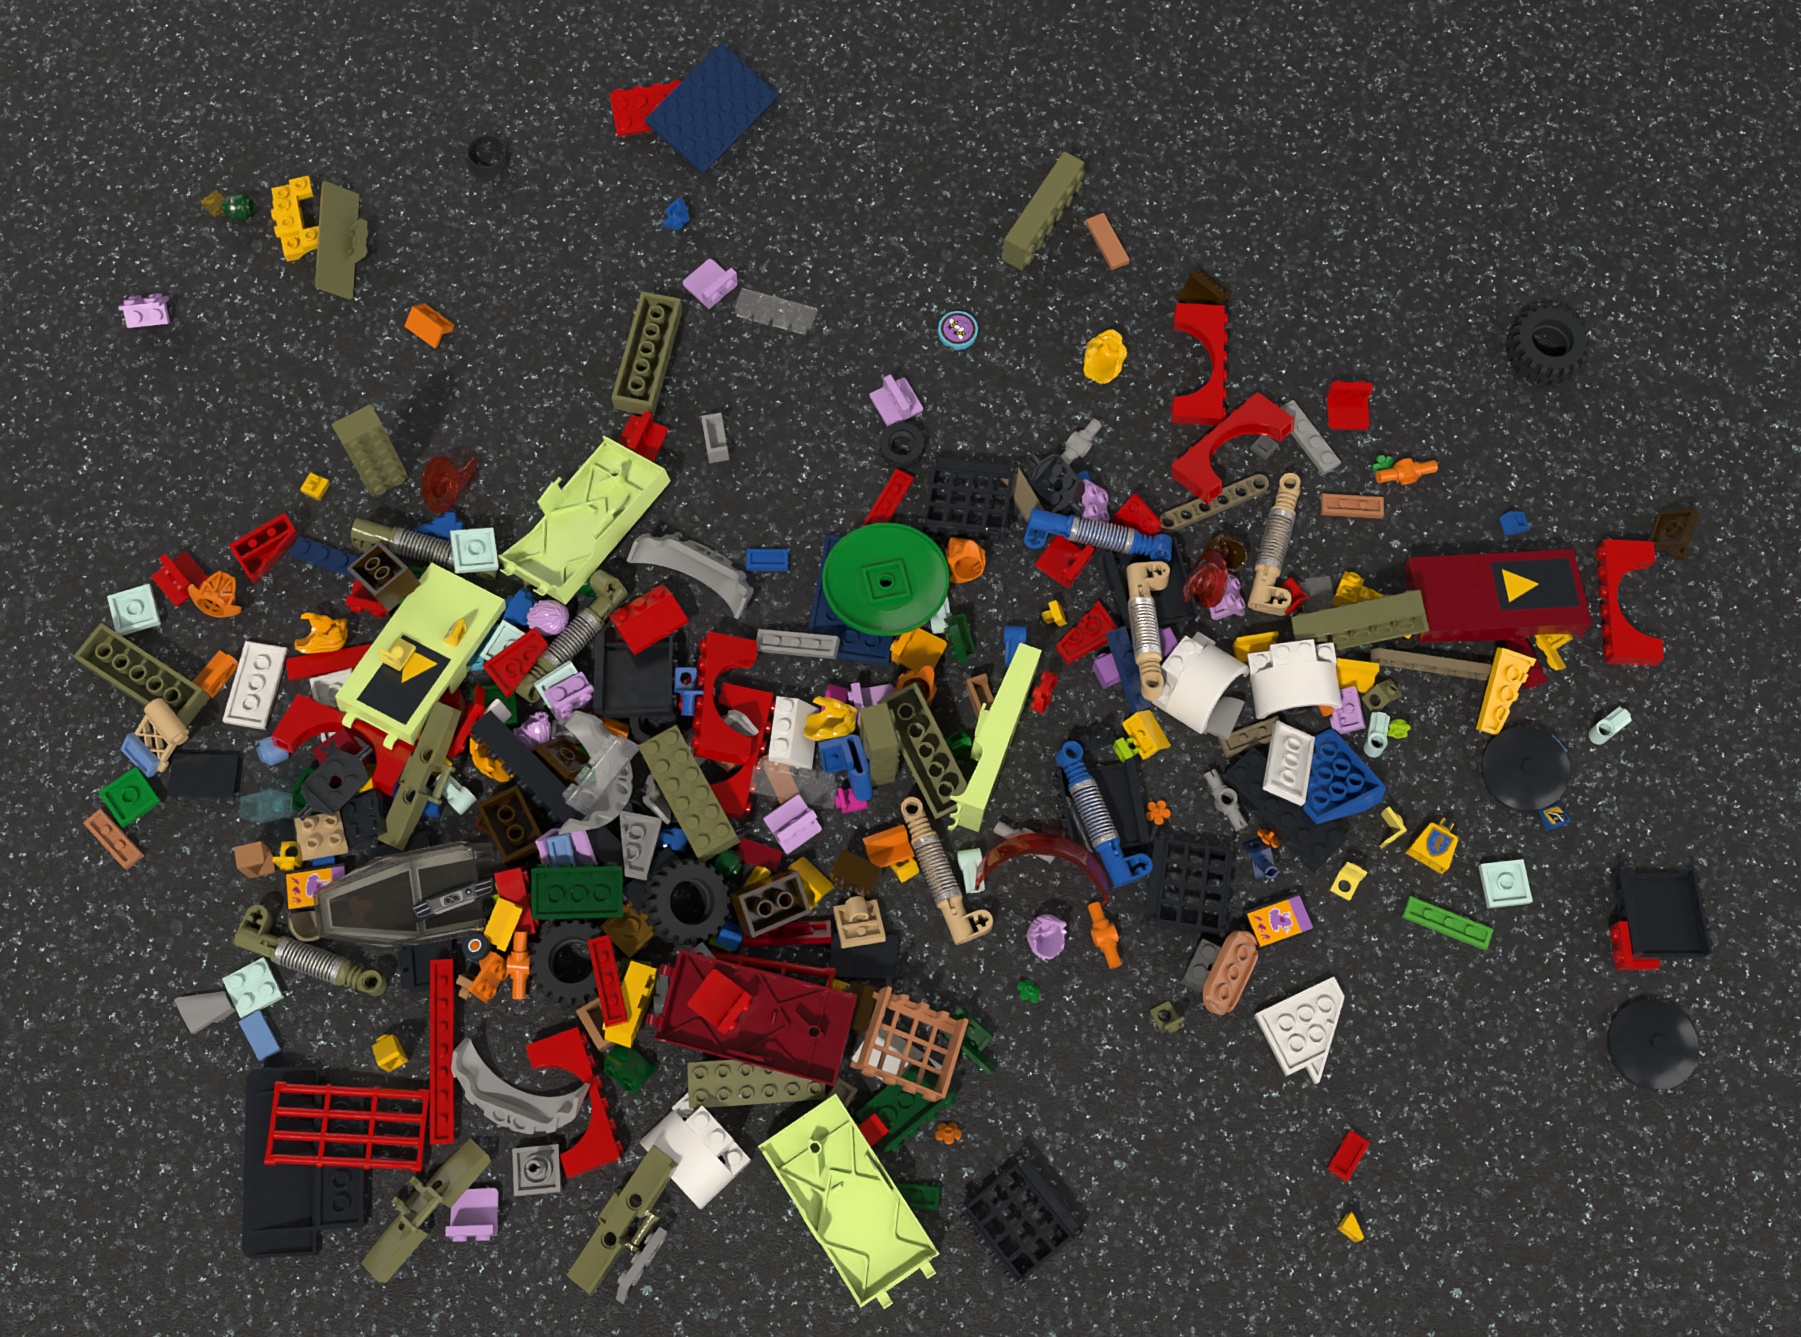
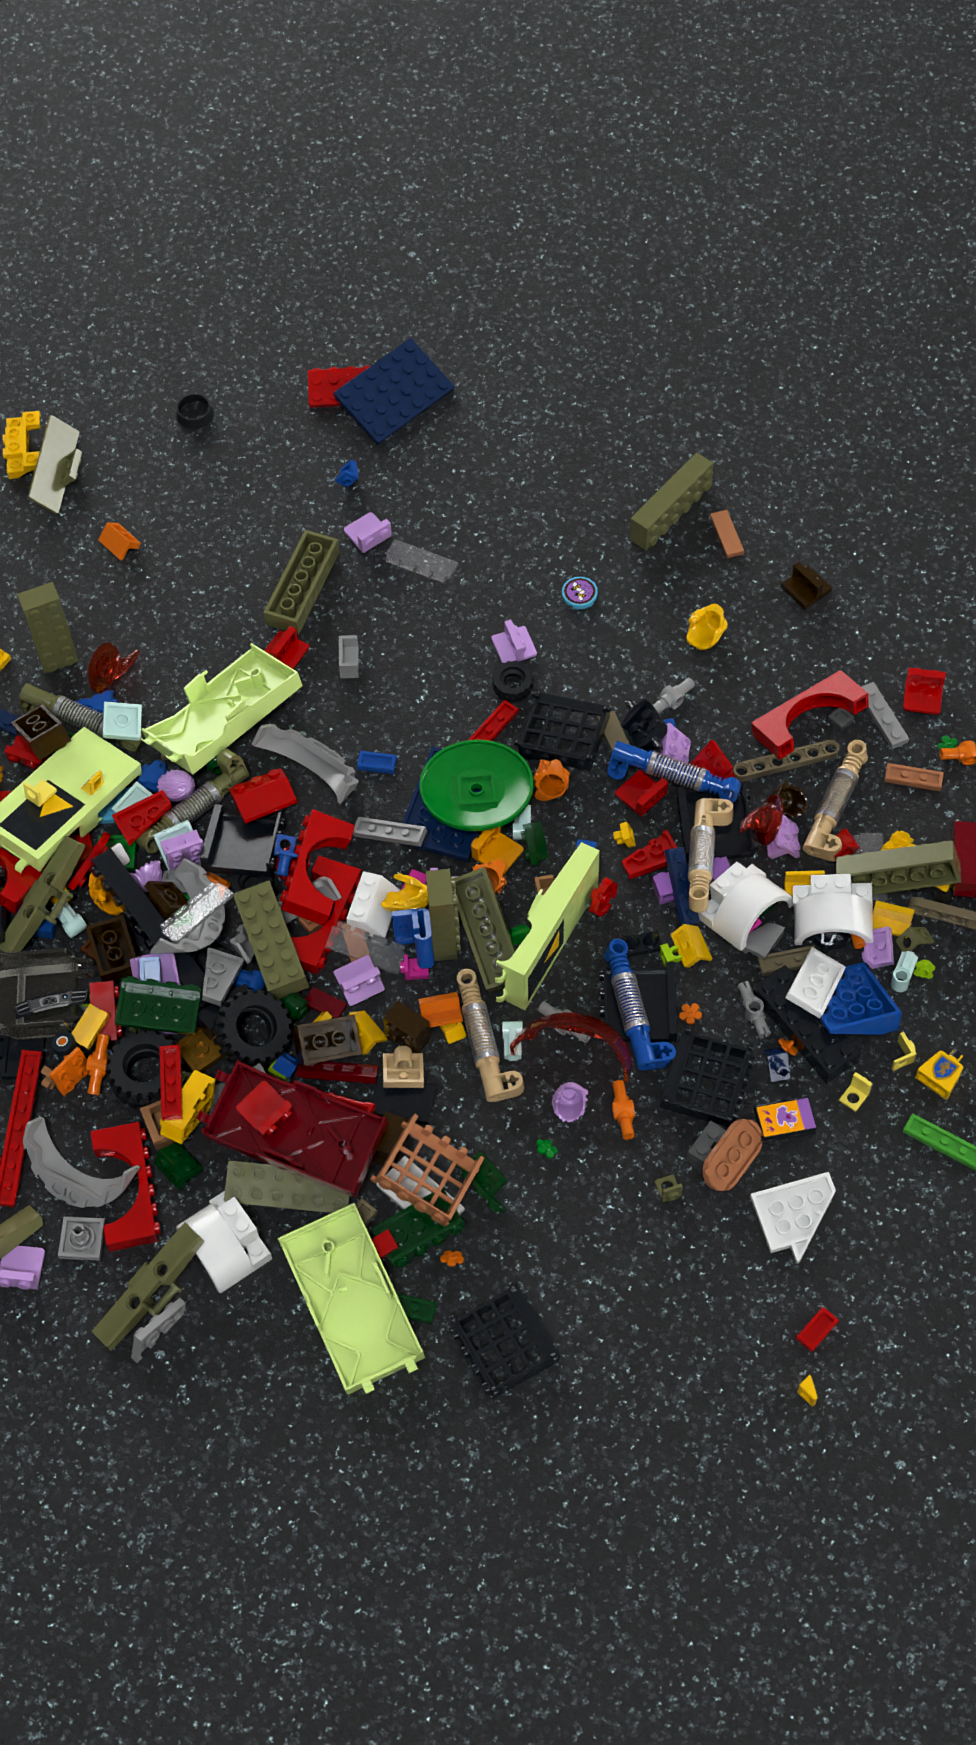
camera: 15 degrees right, 10 degrees down
(1206, 325) = (803, 610): red arch -> none

